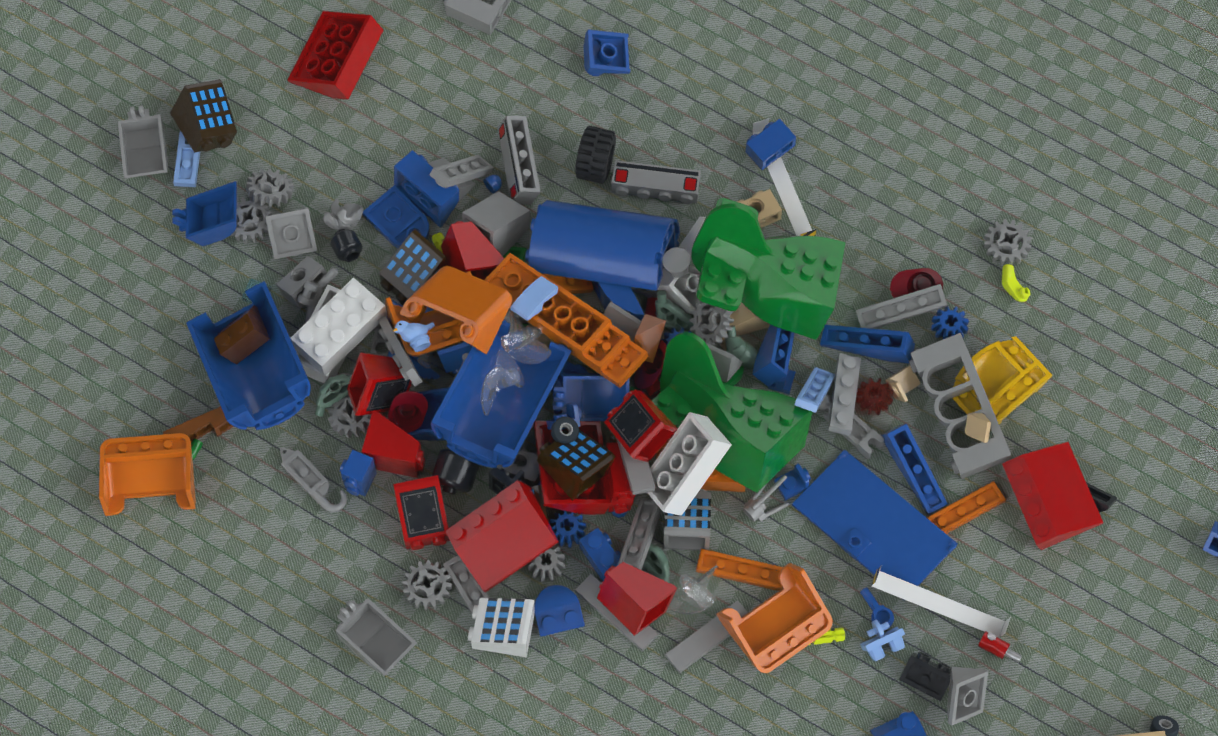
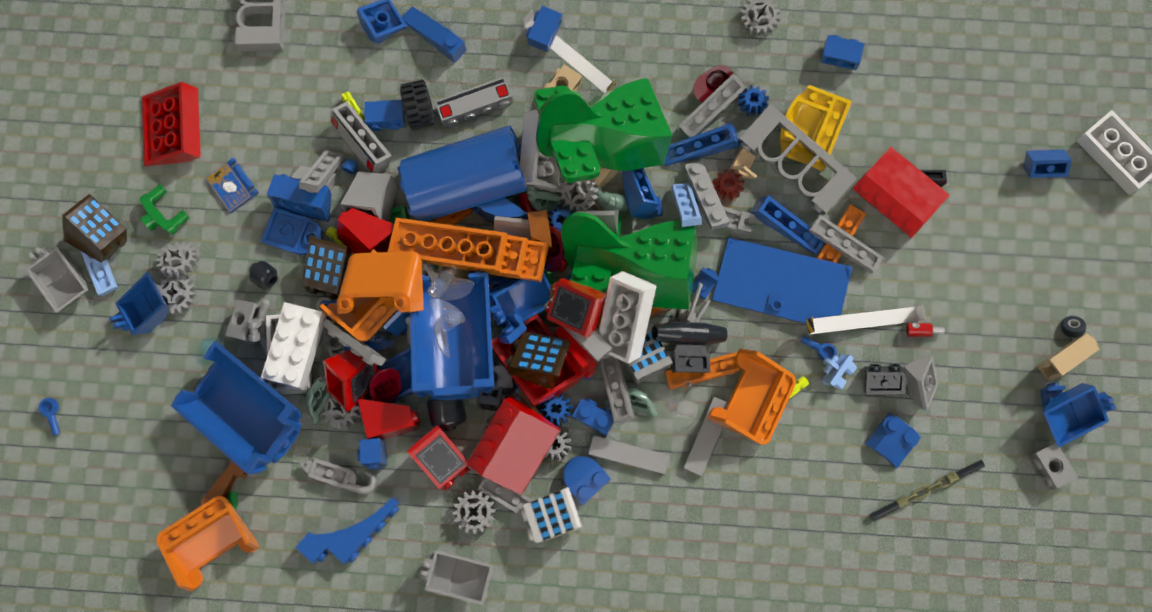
camera: 25 degrees left, 10 degrees up
(64, 268) = (49, 407): none -> blue plate
(242, 336) = (220, 392): reddish brown slope -> none
(269, 135) = (154, 217): none -> green connector
(288, 547) = (347, 542): none -> blue arch
(291, 233) = (214, 288): light grey plate -> none
(343, 217) = (248, 253): light grey hair -> none
(364, 143) = (231, 185): none -> piece
(414, 334) = (358, 324): light blue animal -> none
(529, 113) = (346, 97): none -> neon yellow axle
(533, 297) = (435, 247): light blue slope -> none
(556, 149) = (384, 115): none -> blue brick
(568, 423) = (521, 333): black wheel -> none
(635, 596) = (638, 438): red slope -> none
(654, 94) = (435, 34): none -> blue slope
(677, 262) = (530, 159): light grey piece -> none
(741, 531) = (689, 341): none -> black plate
(964, 518) = (846, 244): none -> light grey tile
(978, 426) = (822, 169): tan slope -> none
(1012, 286) = (781, 47): neon yellow arm -> none
(1073, 322) = (842, 52): none -> blue brick

